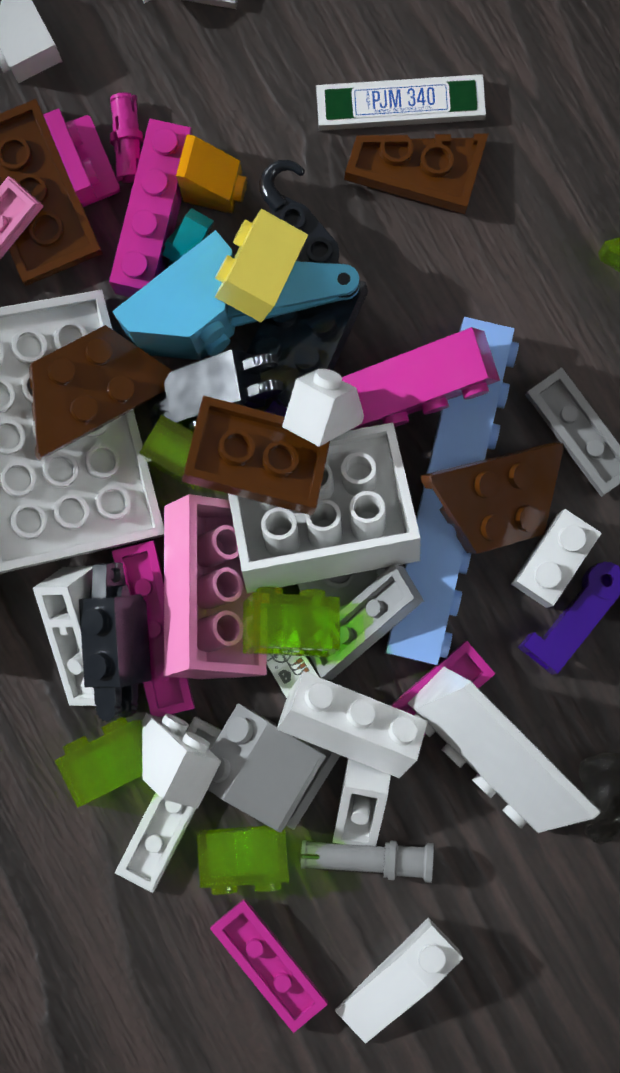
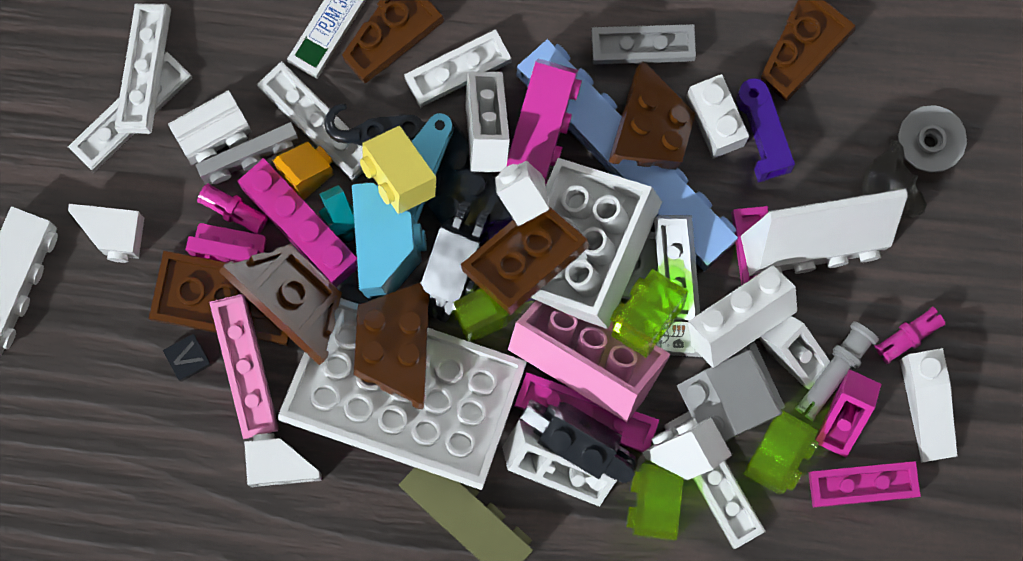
camera: 65 degrees left, 5 degrees down
(65, 249) = (290, 295): none -> wing
(187, 111) = (248, 154): none -> light grey plate
(191, 59) = (210, 128): none -> white brick
(276, 139) = (309, 116): none -> white tile
(333, 900) = (848, 413): none -> dark pink slope
(380, 323) = (487, 121): none -> white brick
(424, 260) = (451, 70): none -> white plate
(459, 912) = (910, 335): none -> dark pink pin

